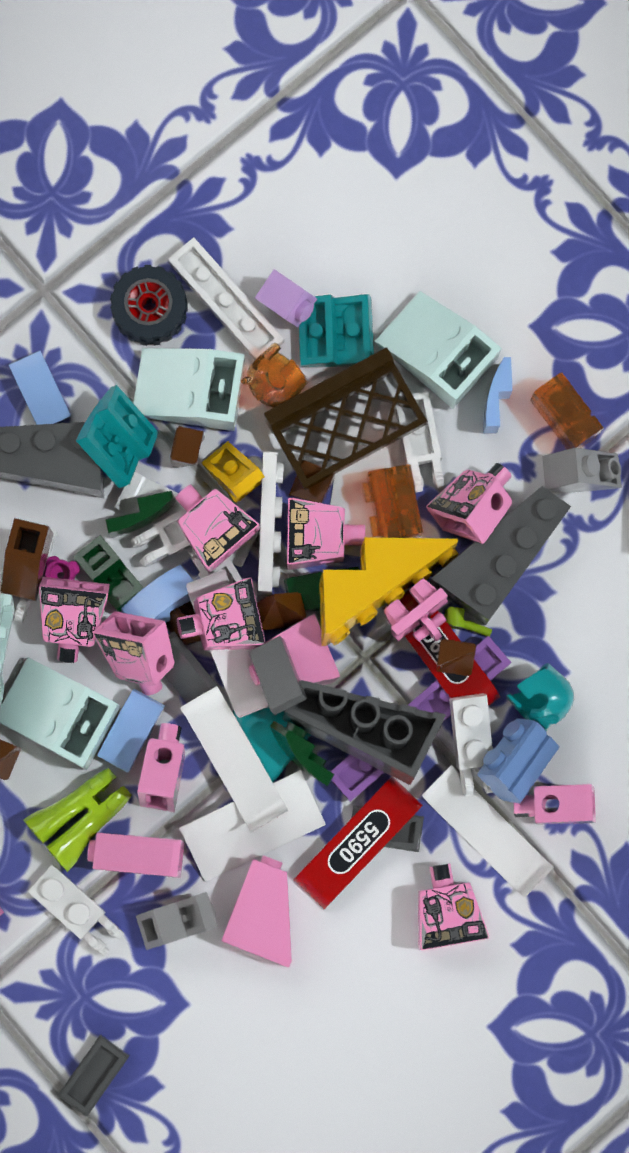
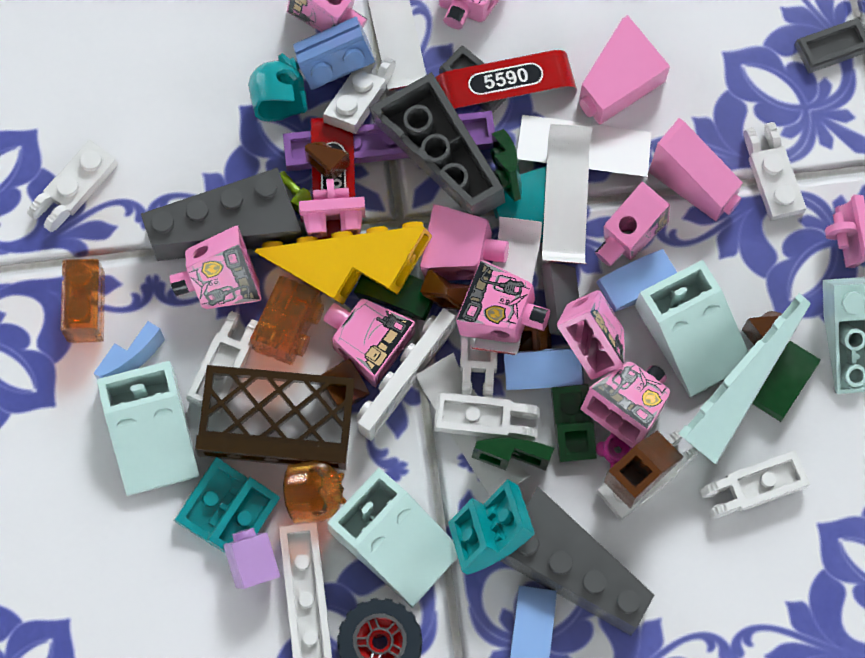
camera: 145 degrees left, 10 degrees down
(71, 844) = (704, 238): lime piece -> none
(177, 921) = (702, 109): light grey brick -> none
(186, 446) = (433, 484): reddish brown slope -> none
(214, 525) = (457, 390): bright pink torso -> none
(233, 471) = (406, 436): yellow slope -> none
(277, 675) = (488, 223): dark grey tile -> none
(581, 470) = (110, 243): light grey slope -> none

